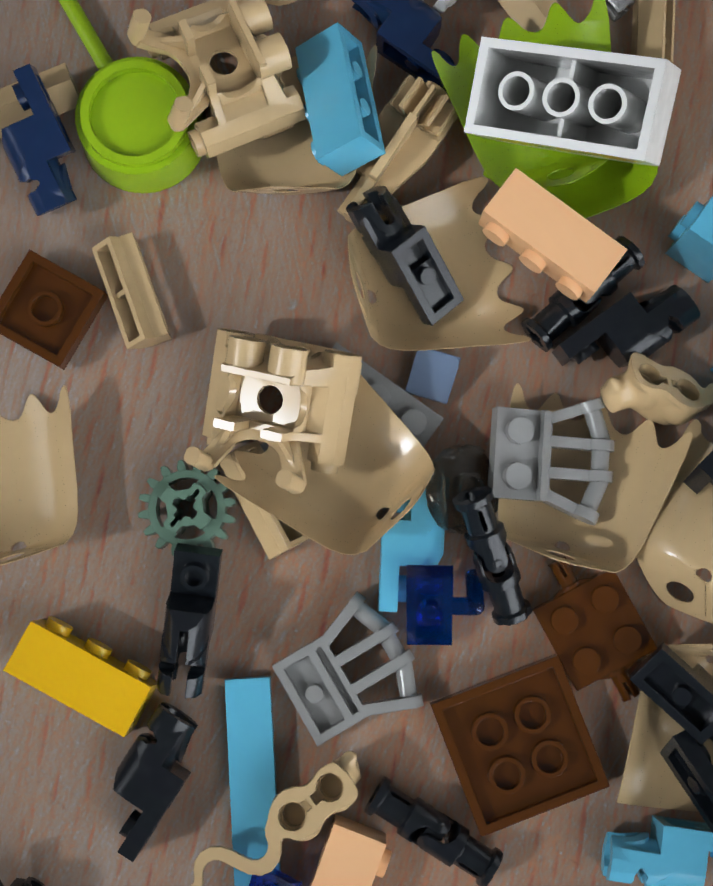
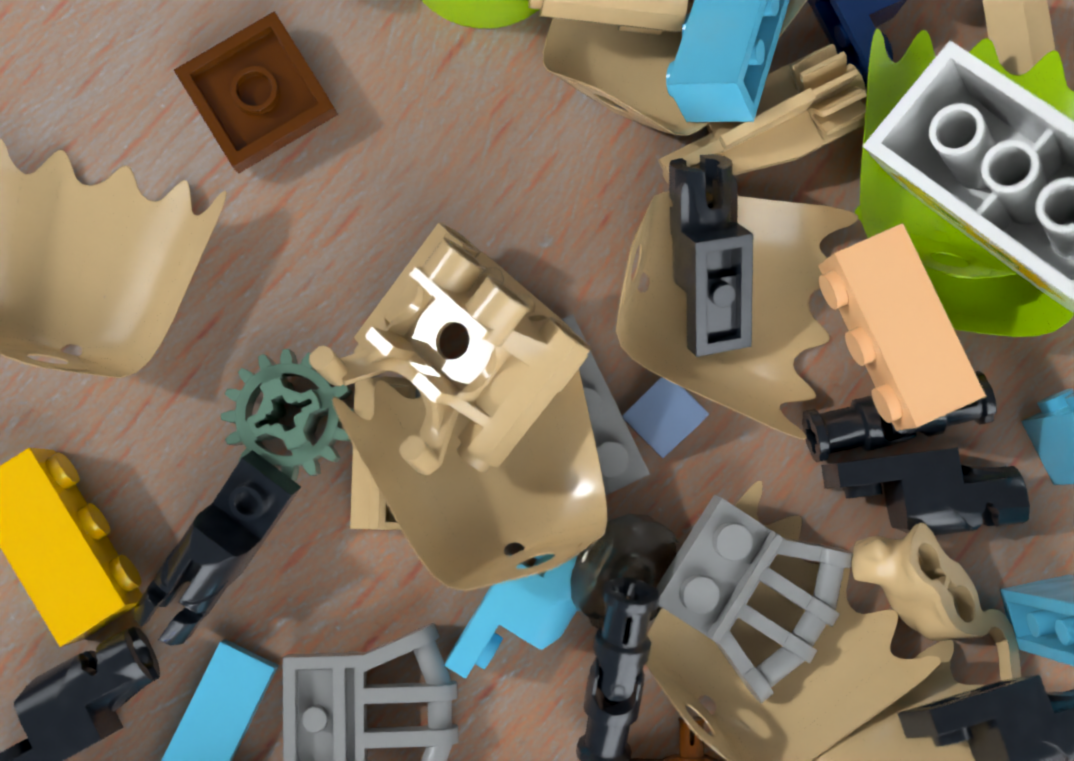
camera: 20 degrees right, 0 degrees up
(131, 292) = (365, 124): tan piece -> none
(432, 603) = (514, 693): clear blue plate -> none

